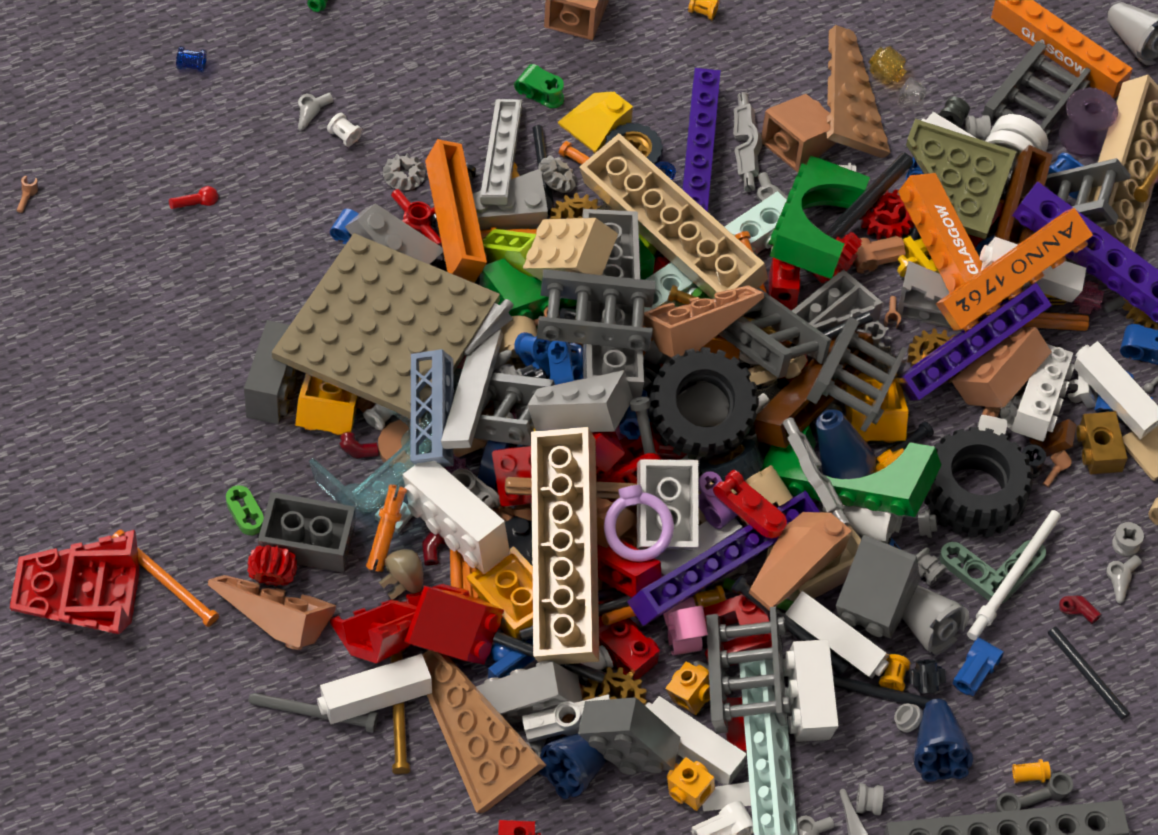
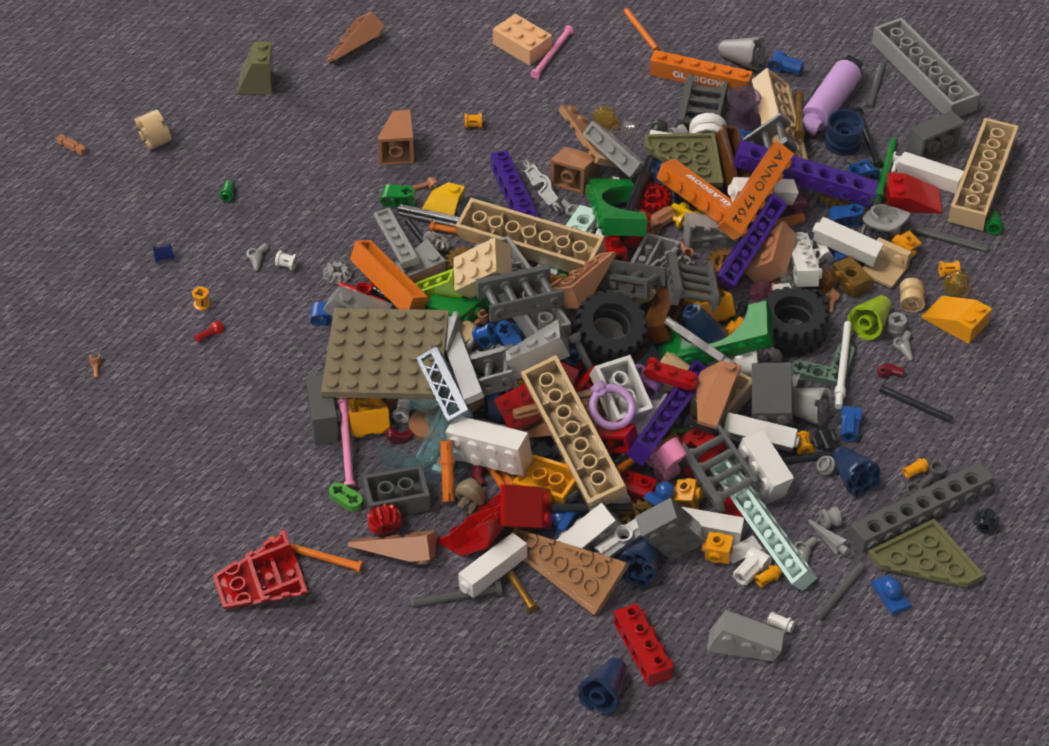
camera: 20 degrees left, 10 degrees down
(199, 141) = (204, 297): none -> light orange bush
(279, 434) = (342, 403): none -> bright pink bar
(564, 128) = (427, 215): none -> axle
(597, 81) = (431, 183): none -> nougat hand
(650, 679) = (662, 492): none -> blue tile
(868, 124) = (614, 149): none -> light grey fence
(960, 417) = (760, 290): none -> clear pink gear
(1094, 516) = (870, 317): none -> lime cone

